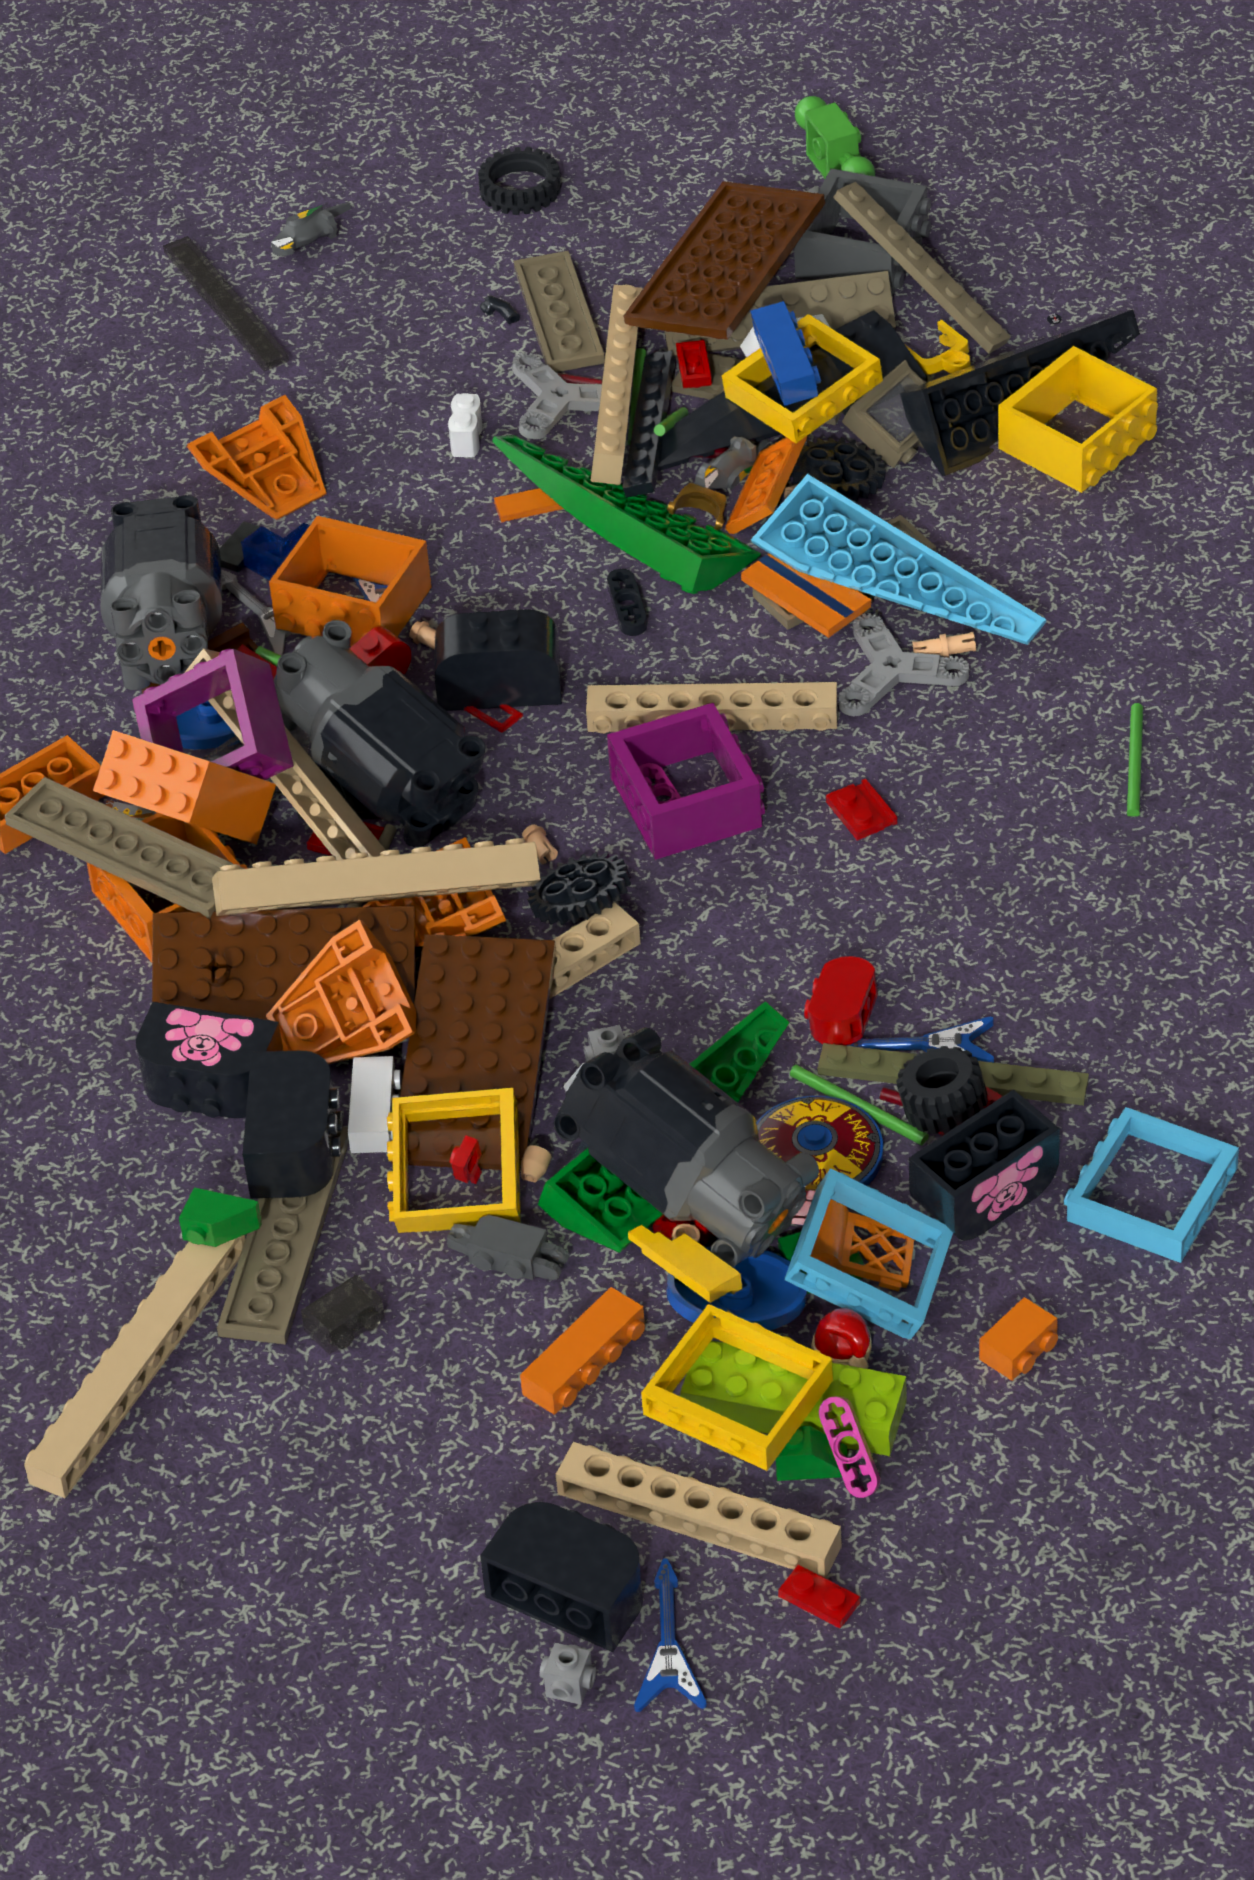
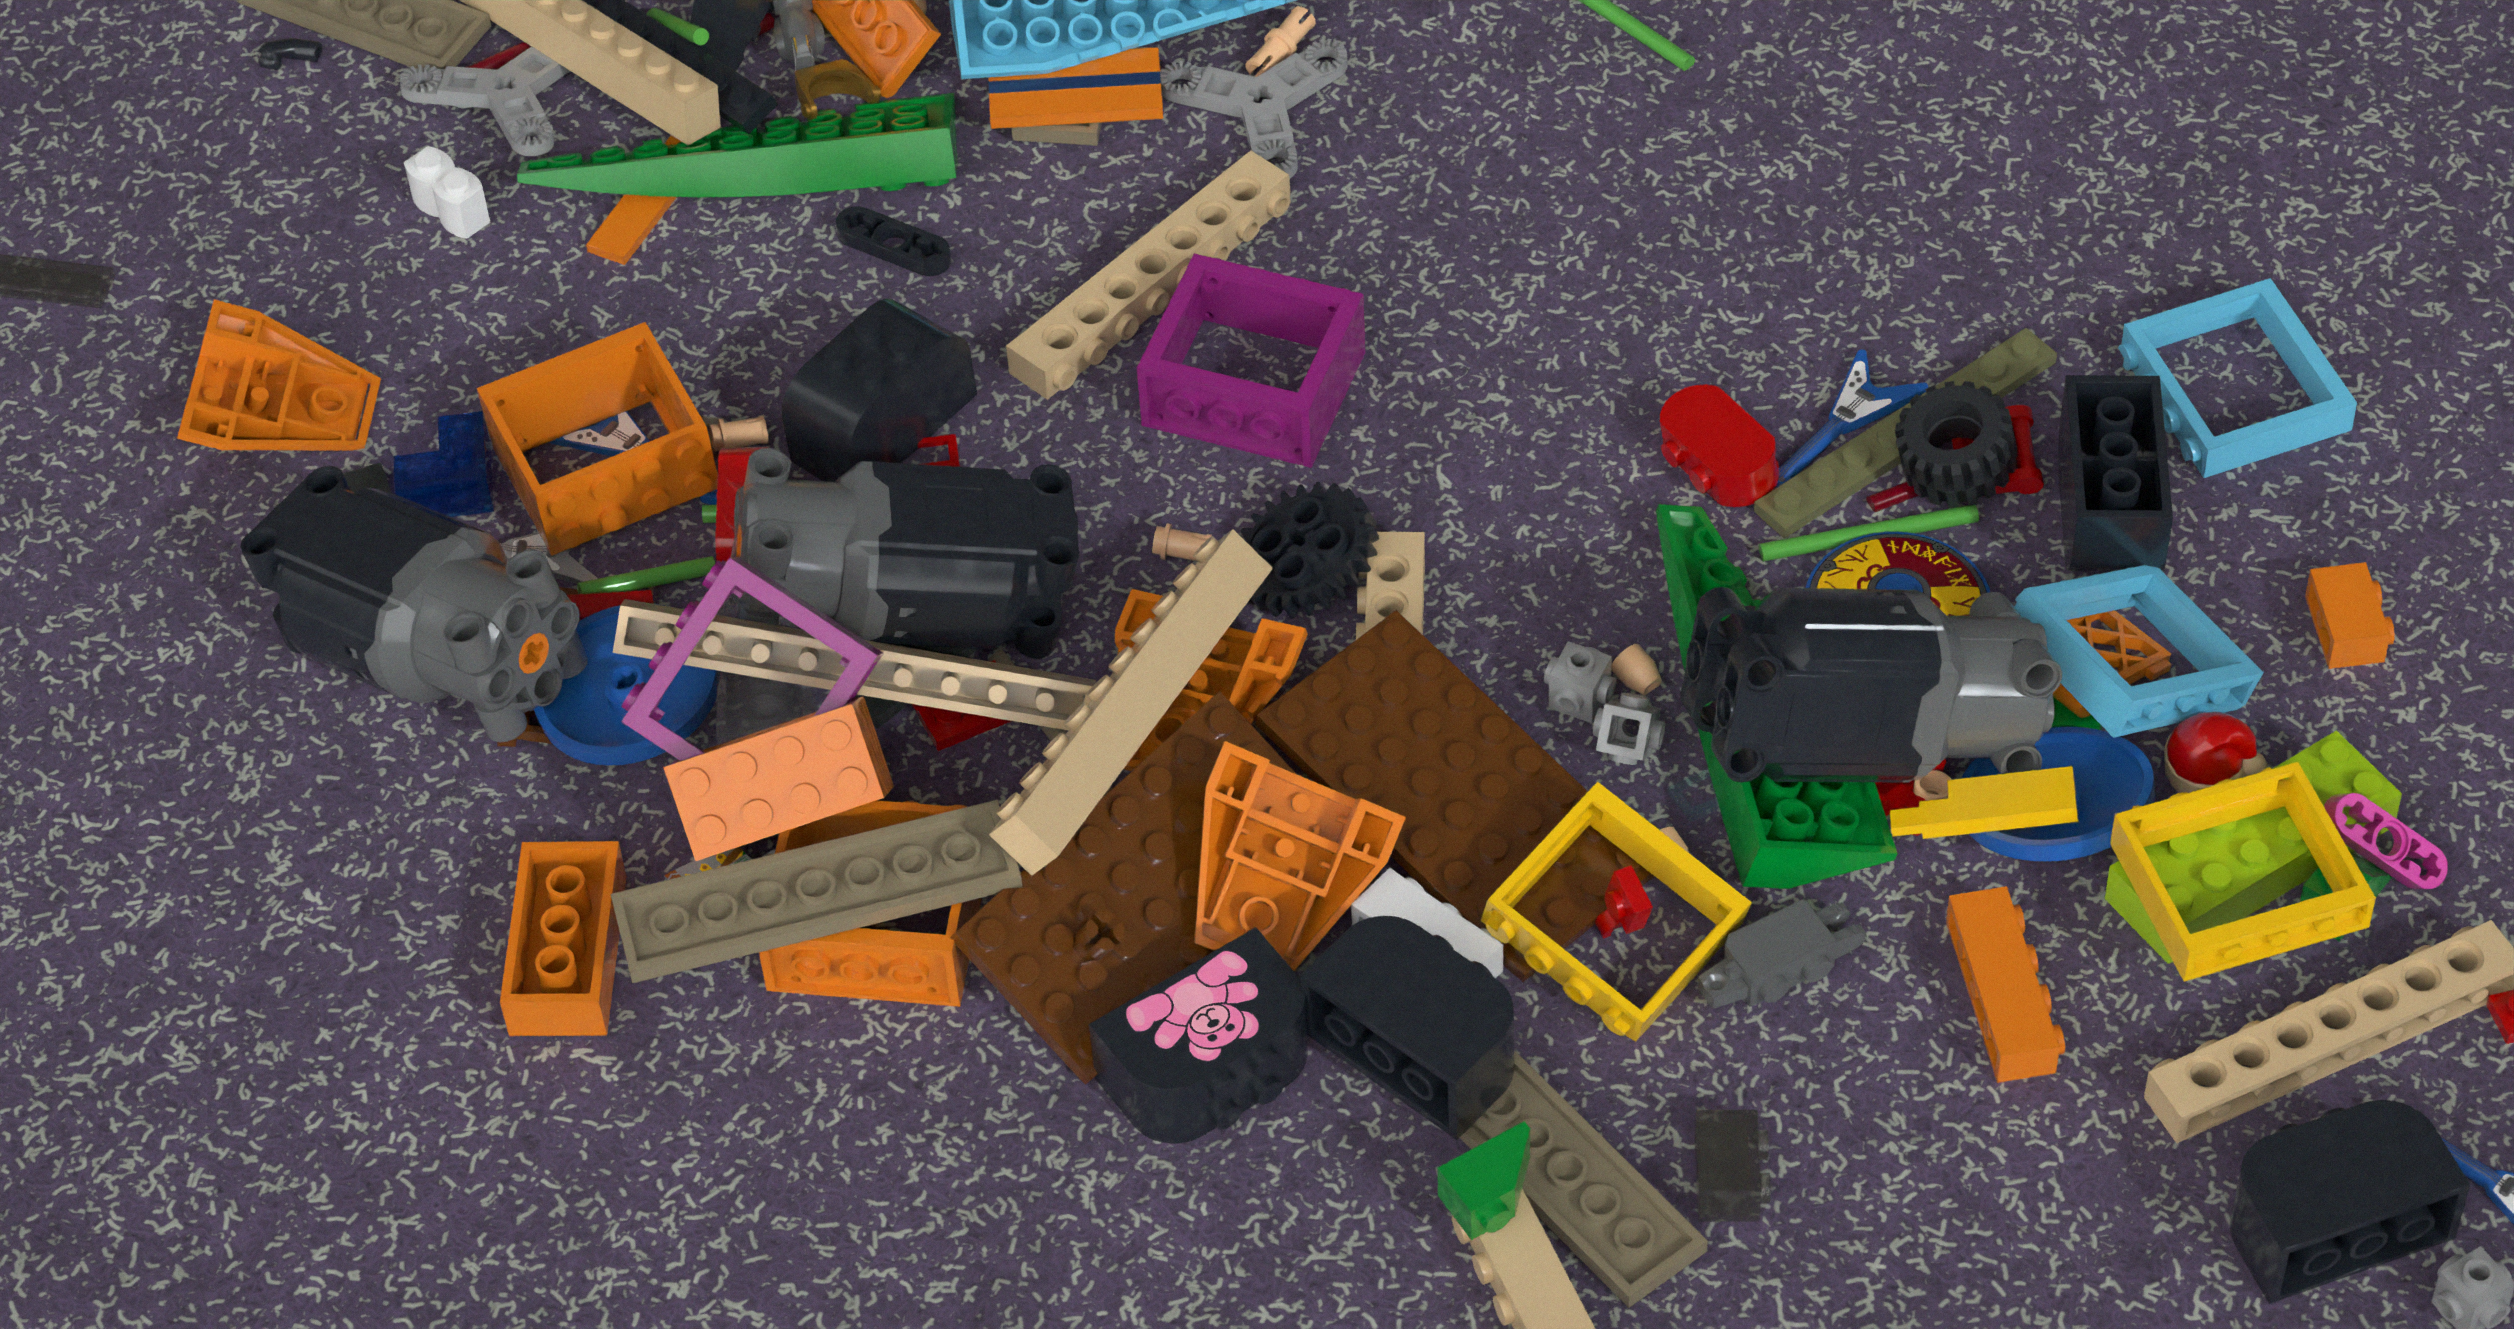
camera: 50 degrees left, 5 degrees up
(861, 809) = (1438, 258): red plate -> none

